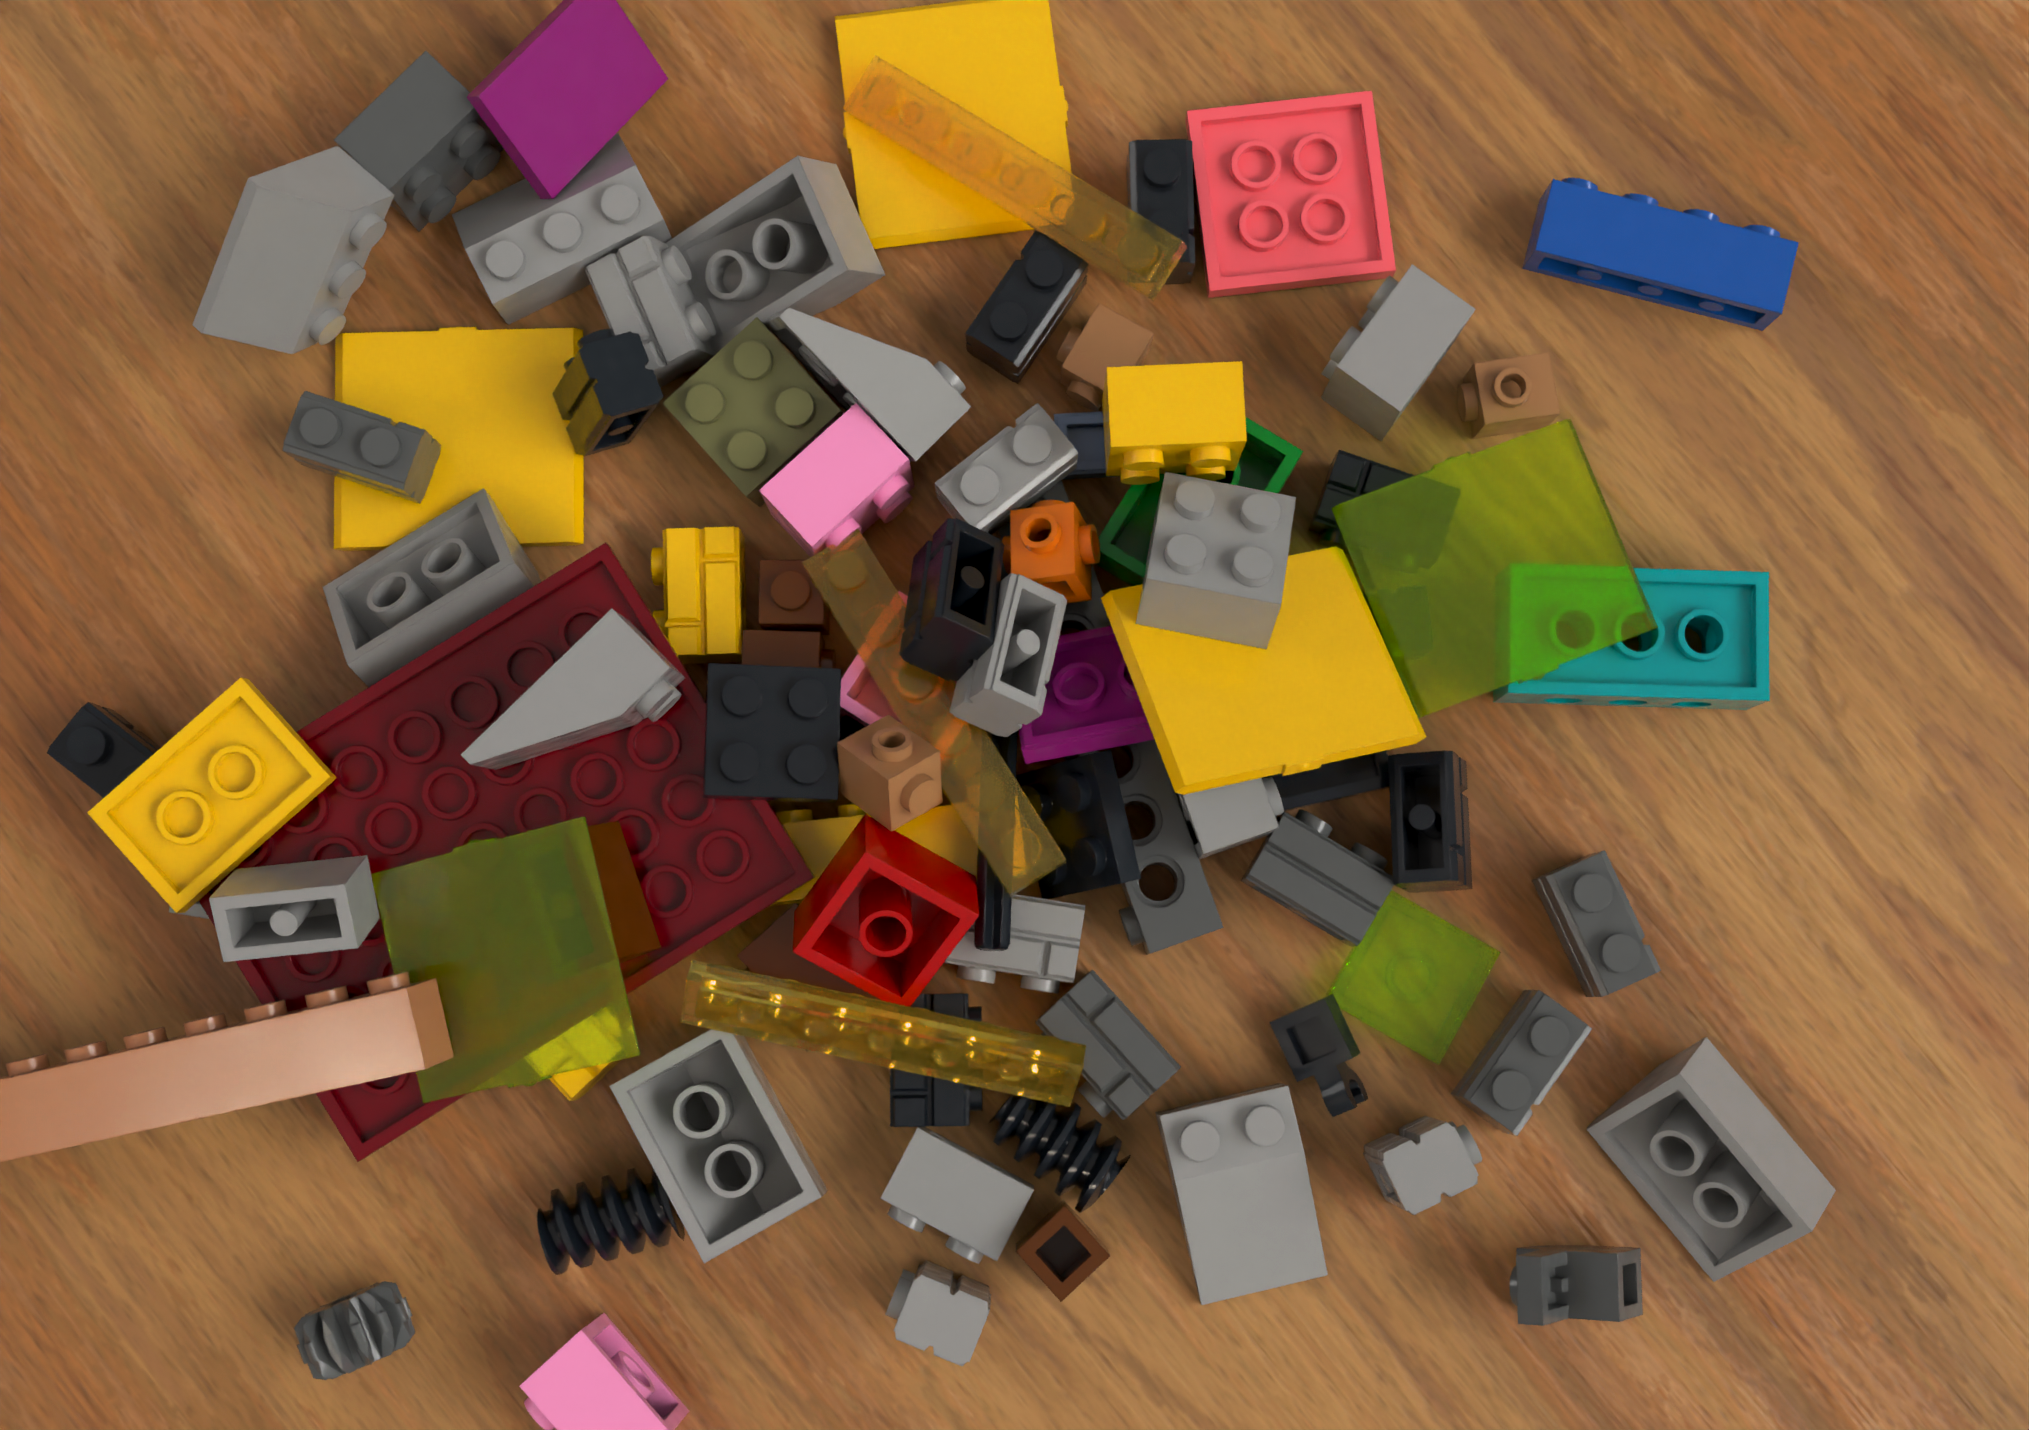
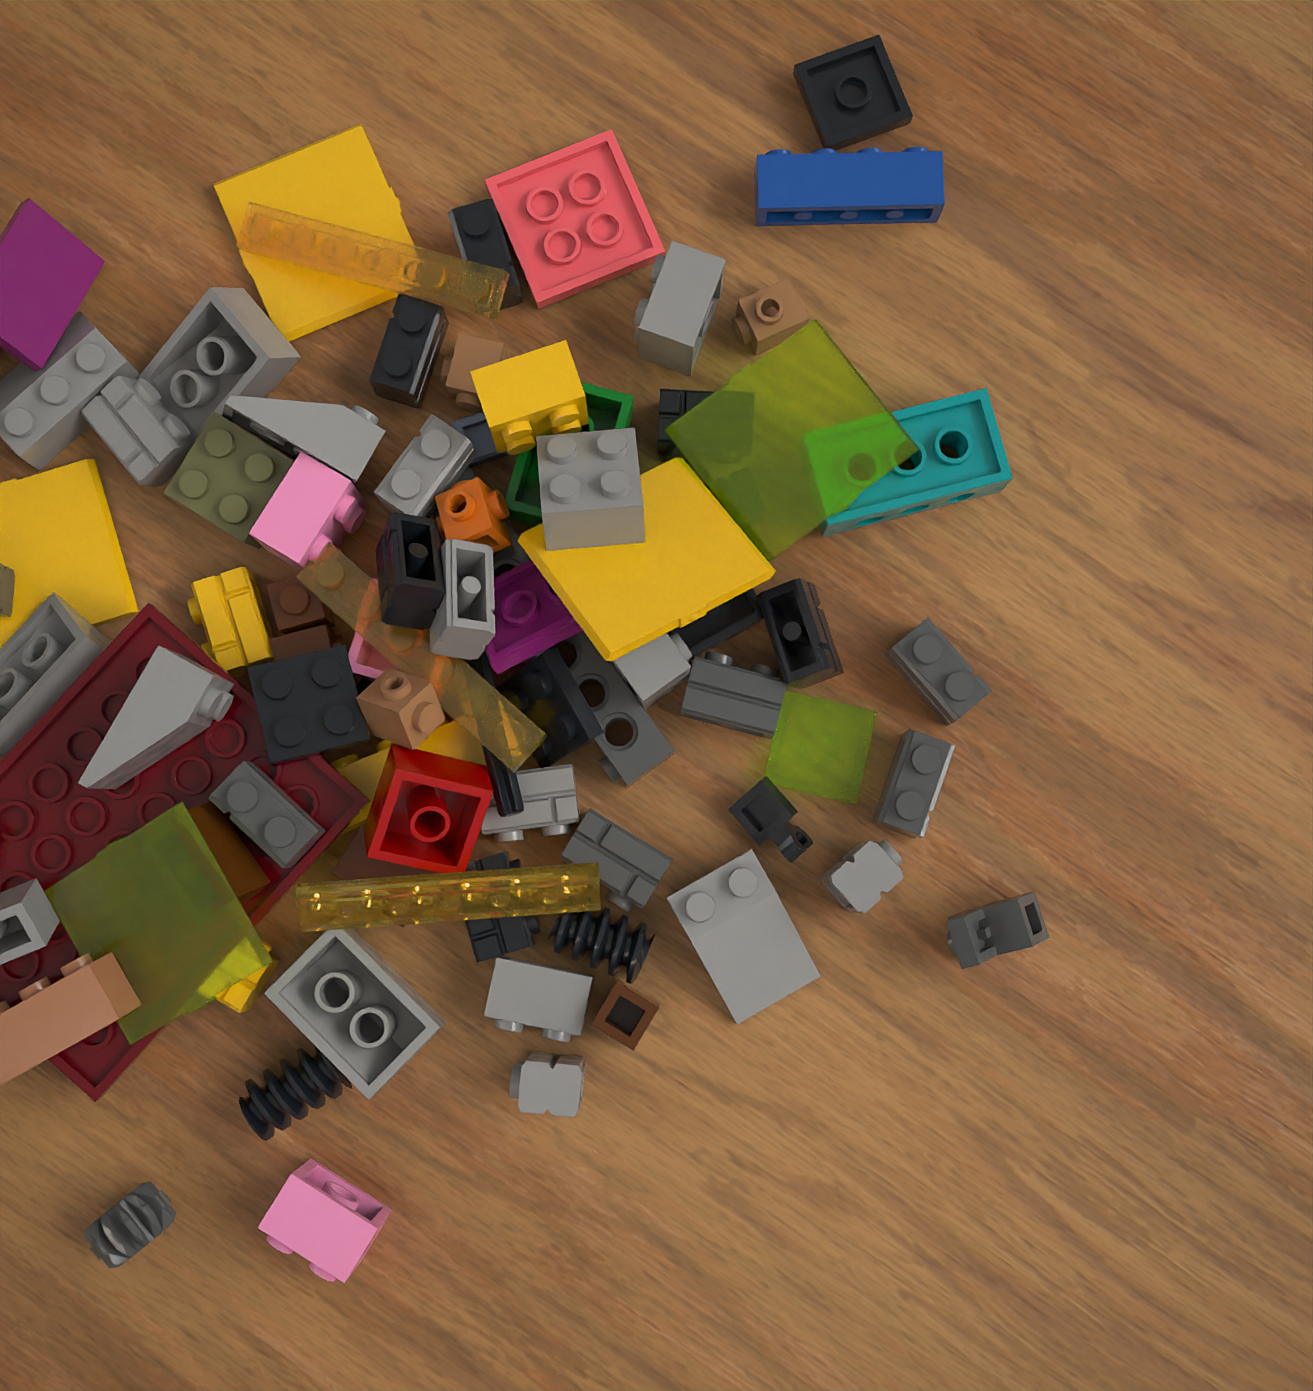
camera: 20 degrees left, 0 degrees up
(606, 391) = (121, 496): black brick -> none
(681, 860) = (267, 814): none -> dark grey brick
(1700, 131) = (852, 94): none -> black plate
(1712, 1161) = (1067, 815): light grey slope -> none

